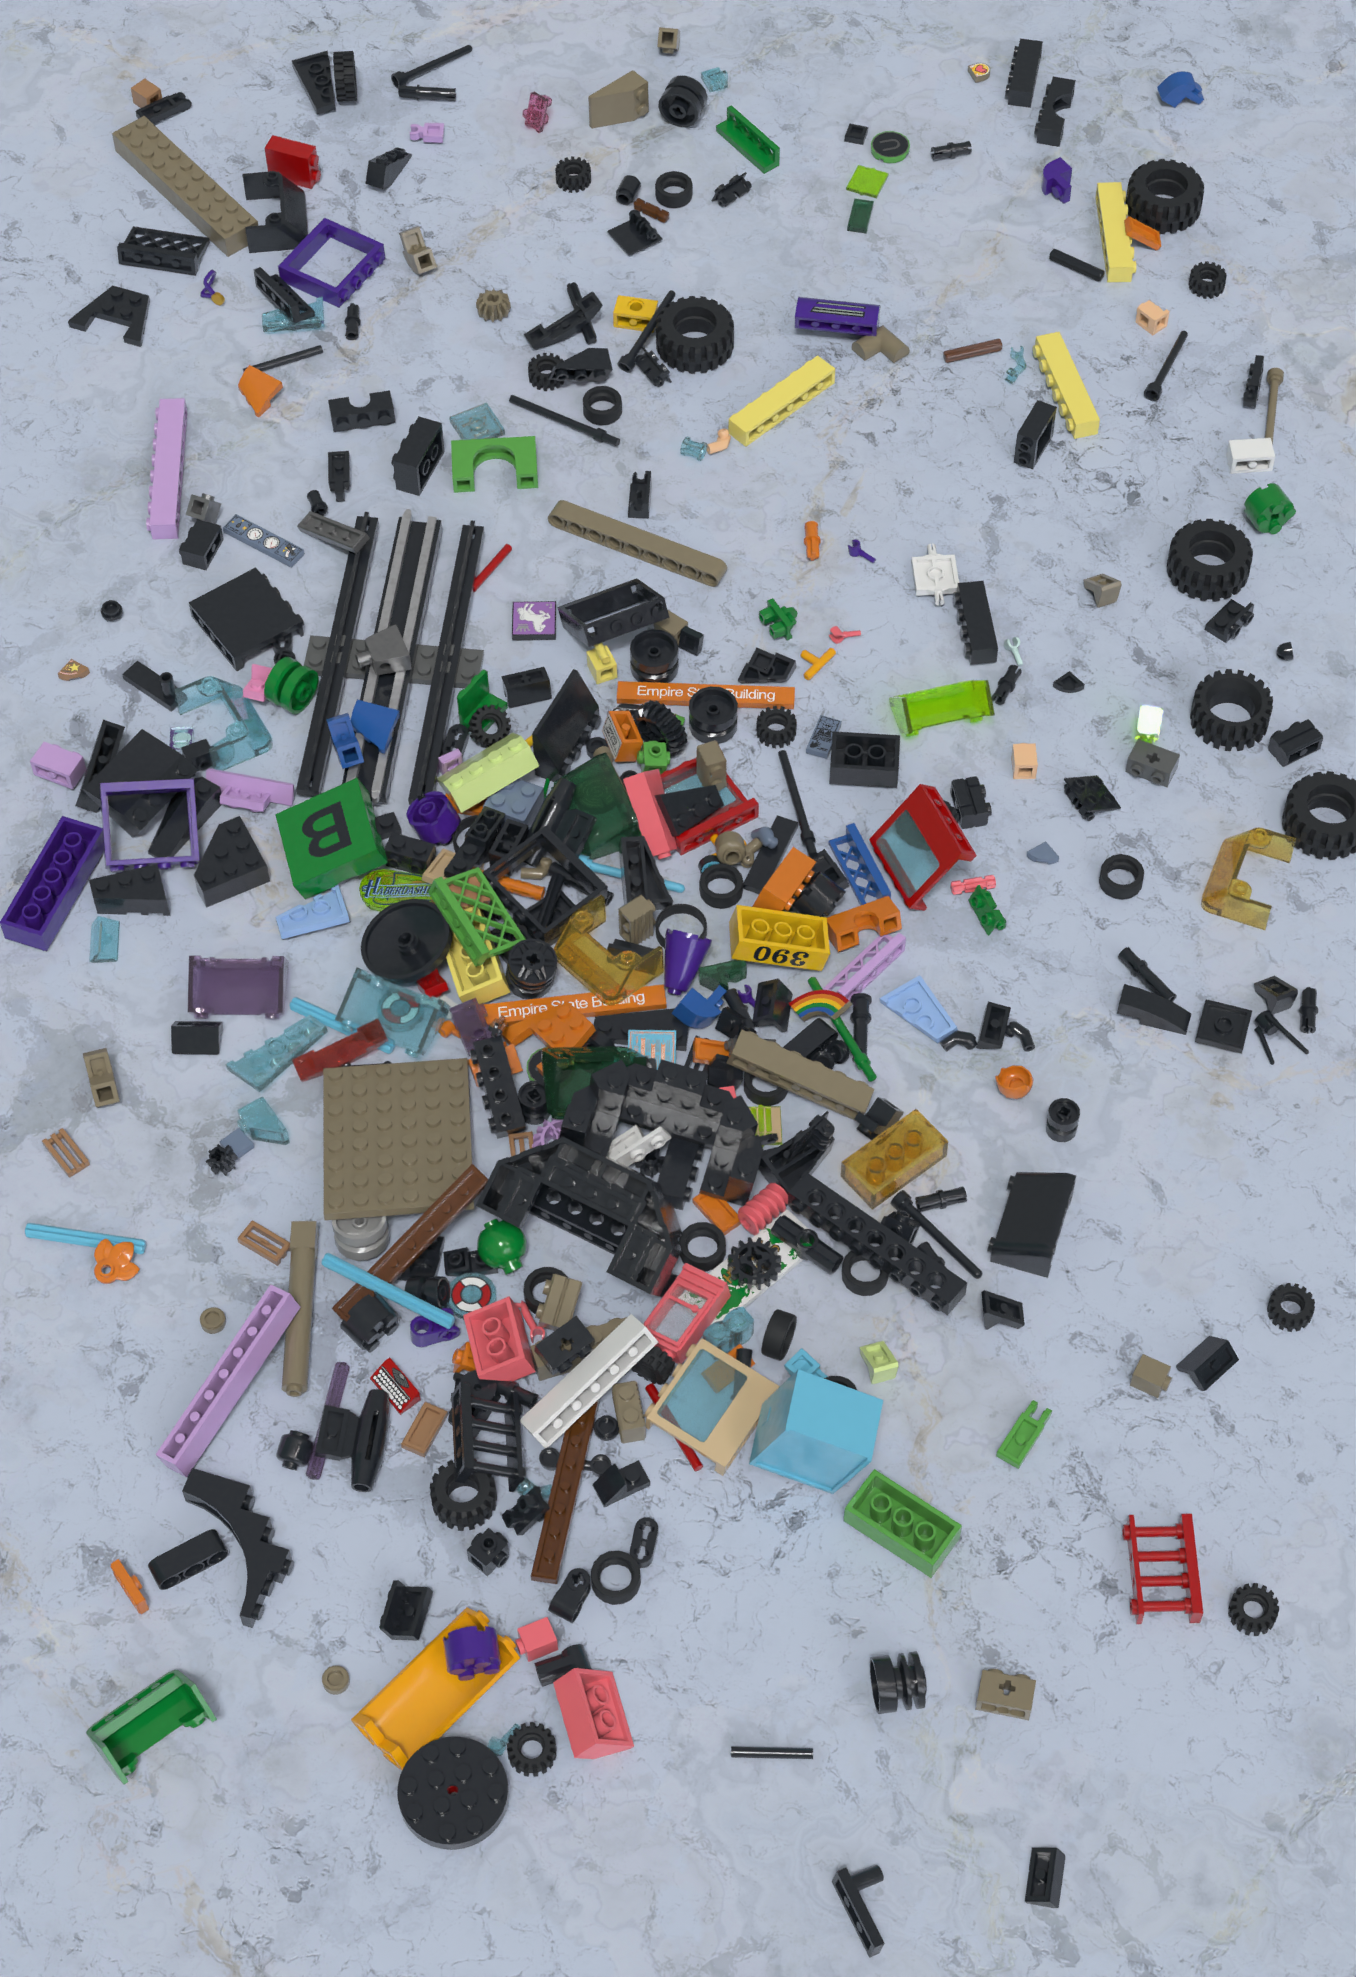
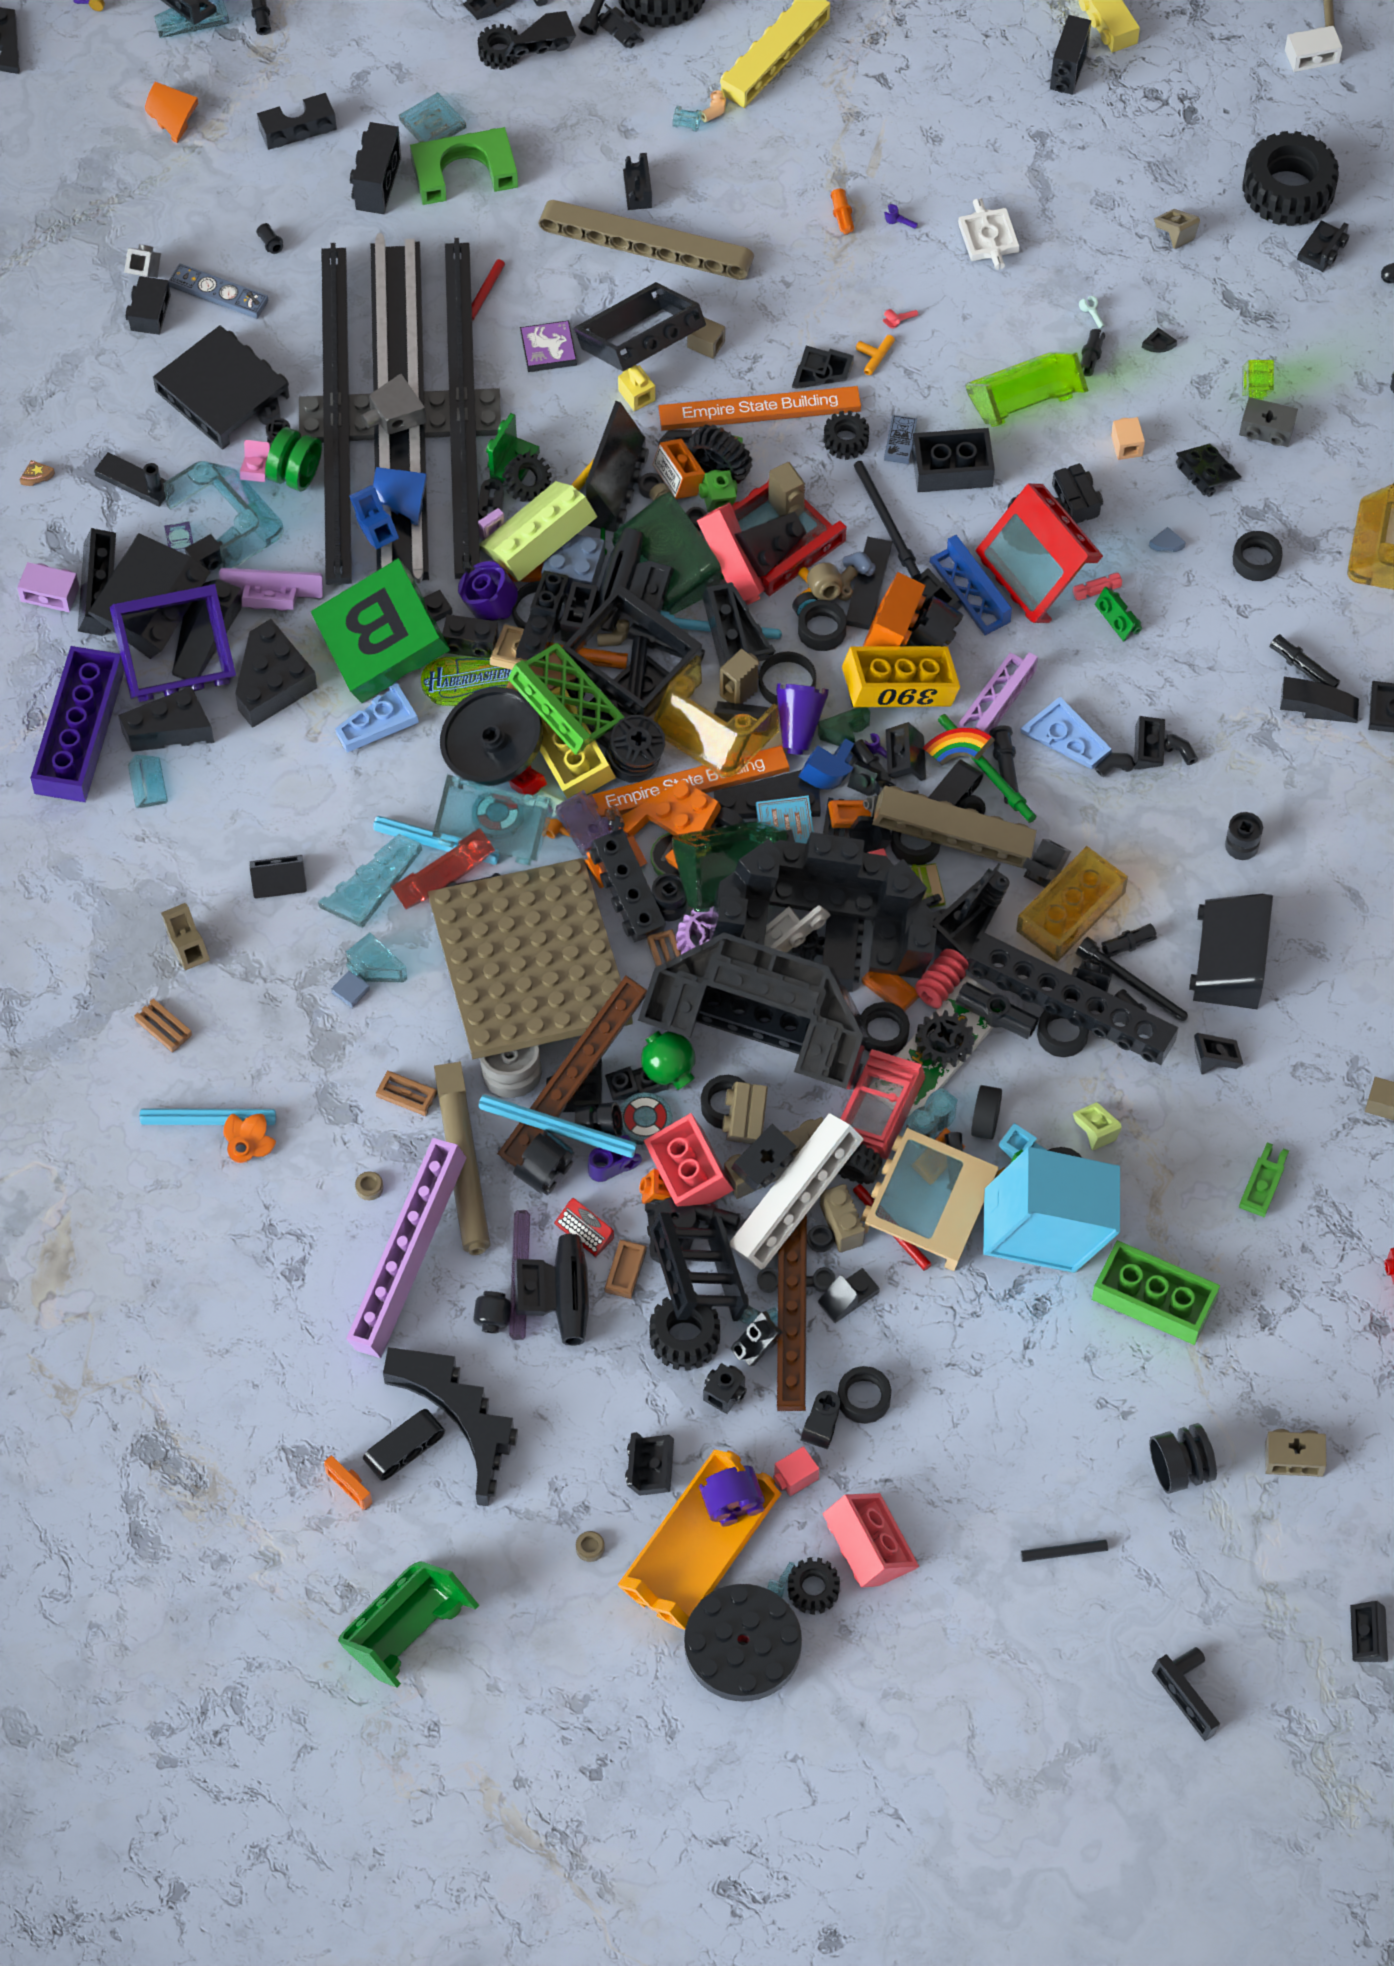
camera: 10 degrees left, 5 degrees up
(111, 610) = (63, 397): black plate -> none
(168, 469) = (88, 217): lavender brick -> none
(221, 1159) = (345, 1005): black gear -> none
(237, 986) = (312, 813): clear purple windscreen -> none
(288, 358) = (194, 68): black bar -> none
(333, 532) = (298, 271): flat silver tile -> none
(339, 473) = (287, 199): black hinge -> none
(526, 687) = (558, 425): black hinge -> none
(535, 1330) = (722, 1145): coral piece -> none
(557, 1666) = (825, 1495): black piece -> none
(597, 434) = (575, 114): black bar -> none
(602, 417) = (571, 65): black tyre -> none
(649, 1543) = (892, 1354): black beam -> none
(654, 656) = (694, 372): black wheel -> none
(691, 640) = (731, 347): black plate -> none
(713, 715) = (774, 431): black wheel -> none
(781, 617) = (827, 307): green hips -> none
(839, 1051) = (988, 793): black plate -> none
(878, 915) = (1001, 635): orange arch -> none
(976, 622) = (1045, 284): black brick -> none
(1014, 1081) = (1184, 800): orange hair -> none
(1236, 690) = (1347, 326): black tyre -> none
(1269, 508) = (1346, 110): green brick -> none

